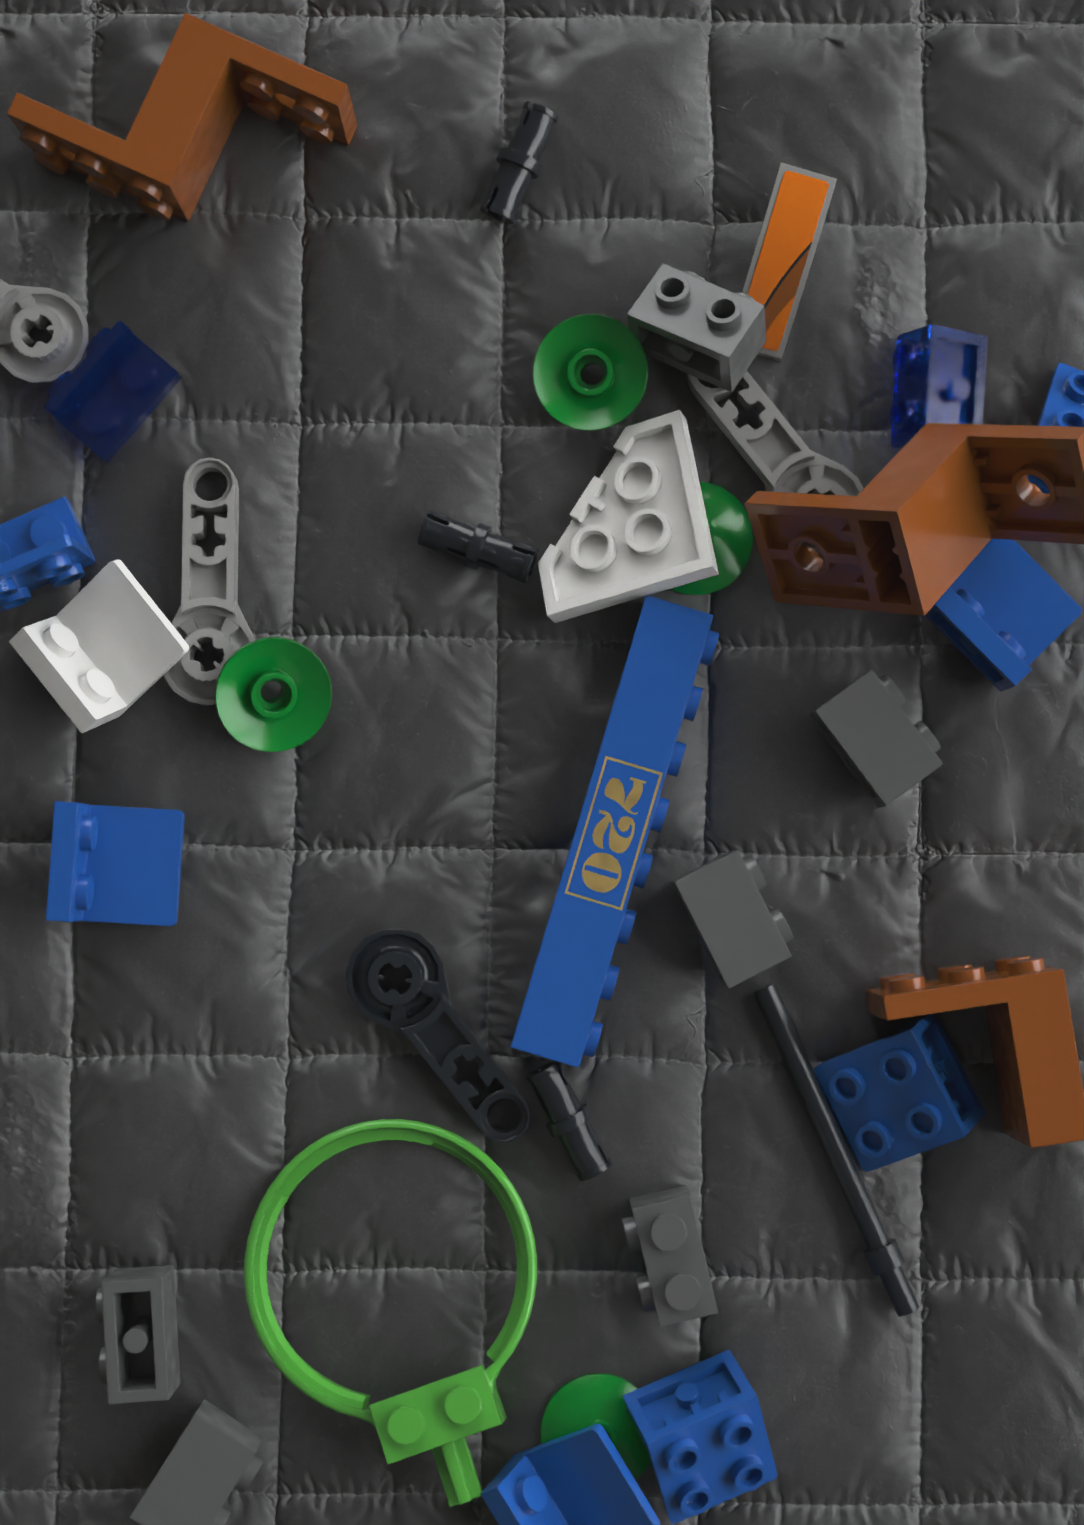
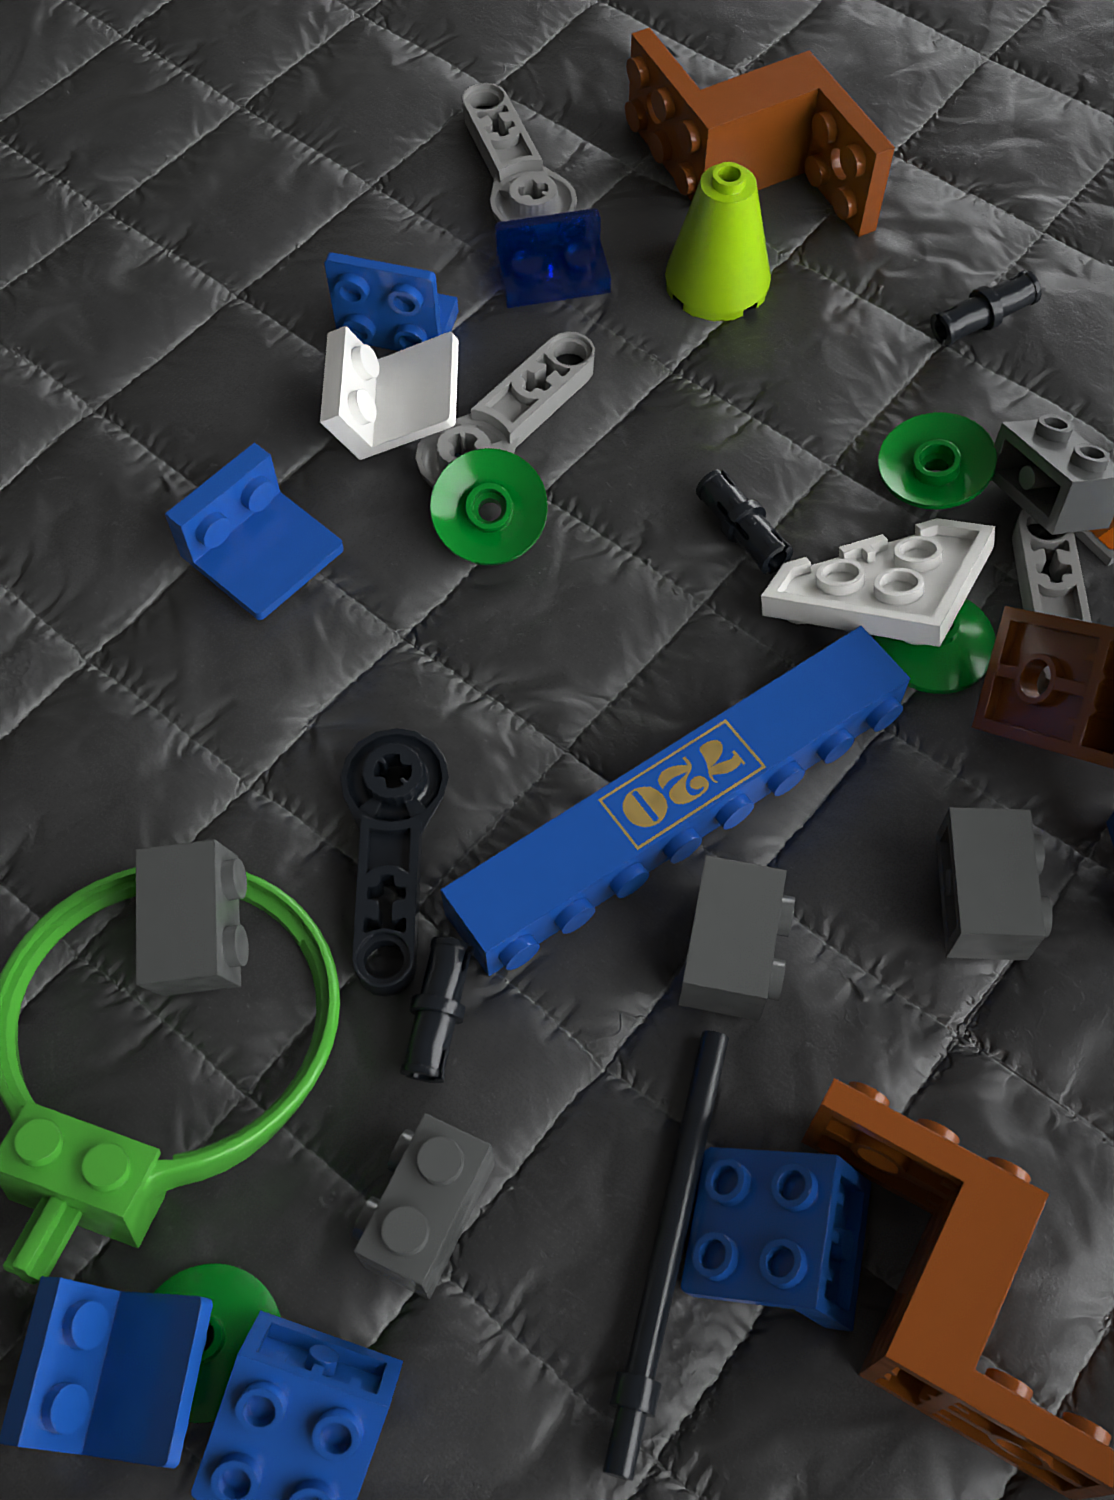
camera: 40 degrees right, 25 degrees down
(261, 289) = (721, 247): none -> lime cone
(353, 1200) = (189, 918): none -> dark grey brick

